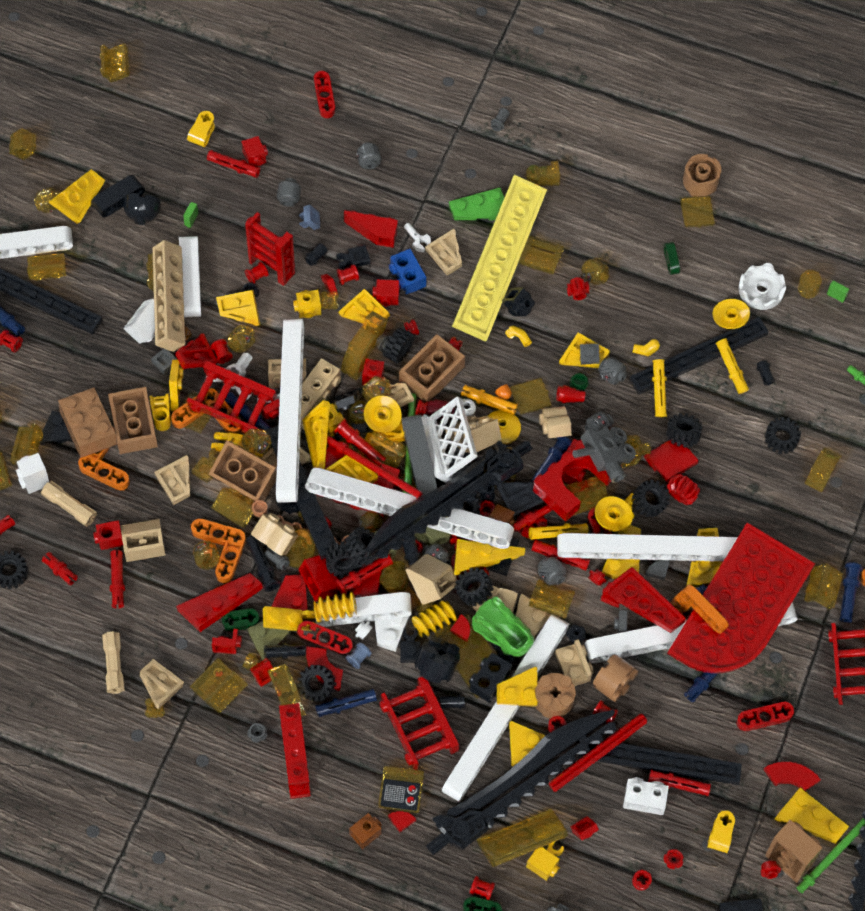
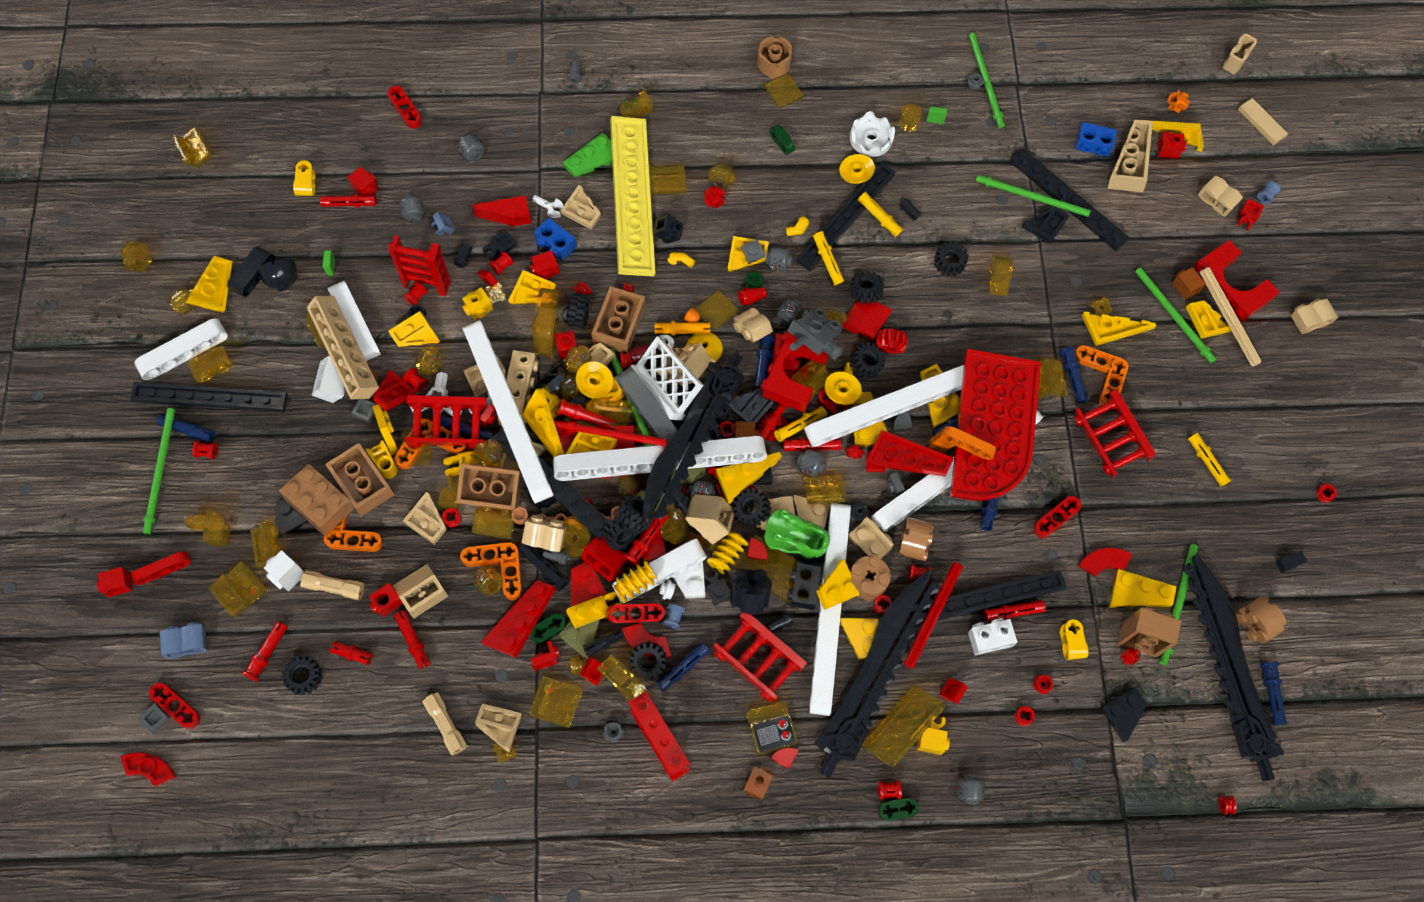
camera: 25 degrees left, 5 degrees up
(197, 481) = (456, 522): none -> red bush

